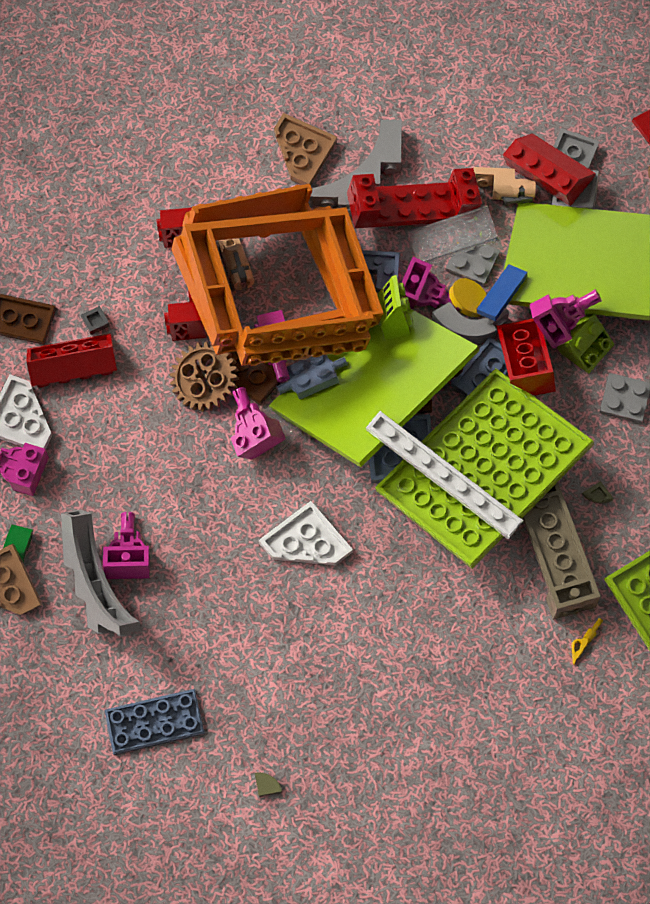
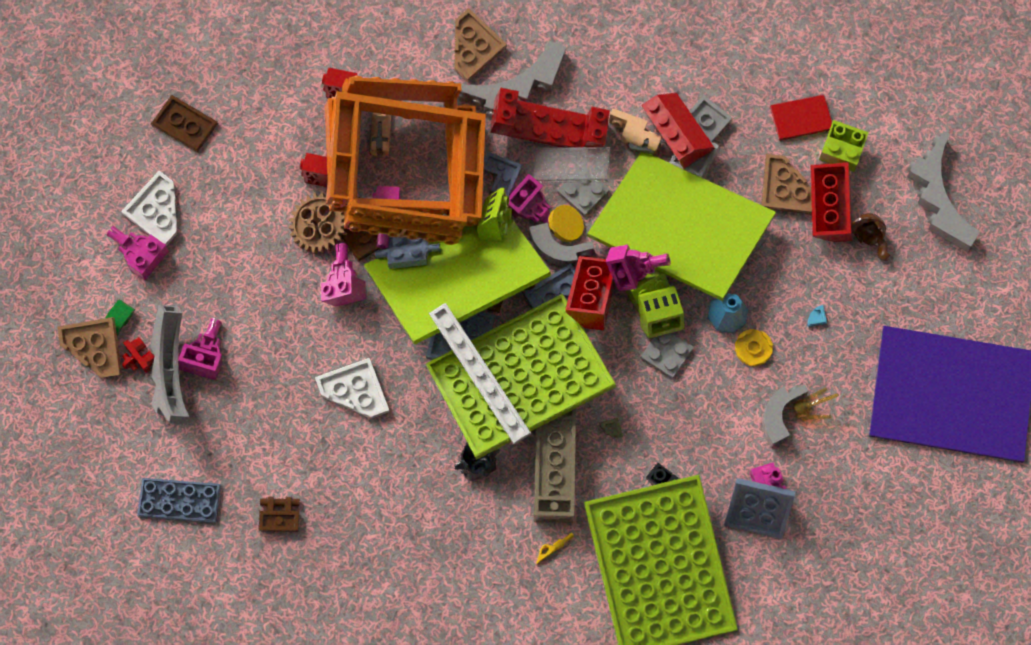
camera: 15 degrees right, 5 degrees up
(46, 572) = (134, 348): none -> red hips
(71, 360) = (214, 173): red slope -> none
(95, 320) = (245, 145): dark grey plate -> none
(267, 784) = (251, 581): olive tile -> none
(274, 707) = (279, 520): none -> reddish brown plate
(468, 580) = (475, 468): none -> black hair
(502, 292) = (592, 229): blue tile -> none
(606, 356) = (660, 312): none -> lime slope

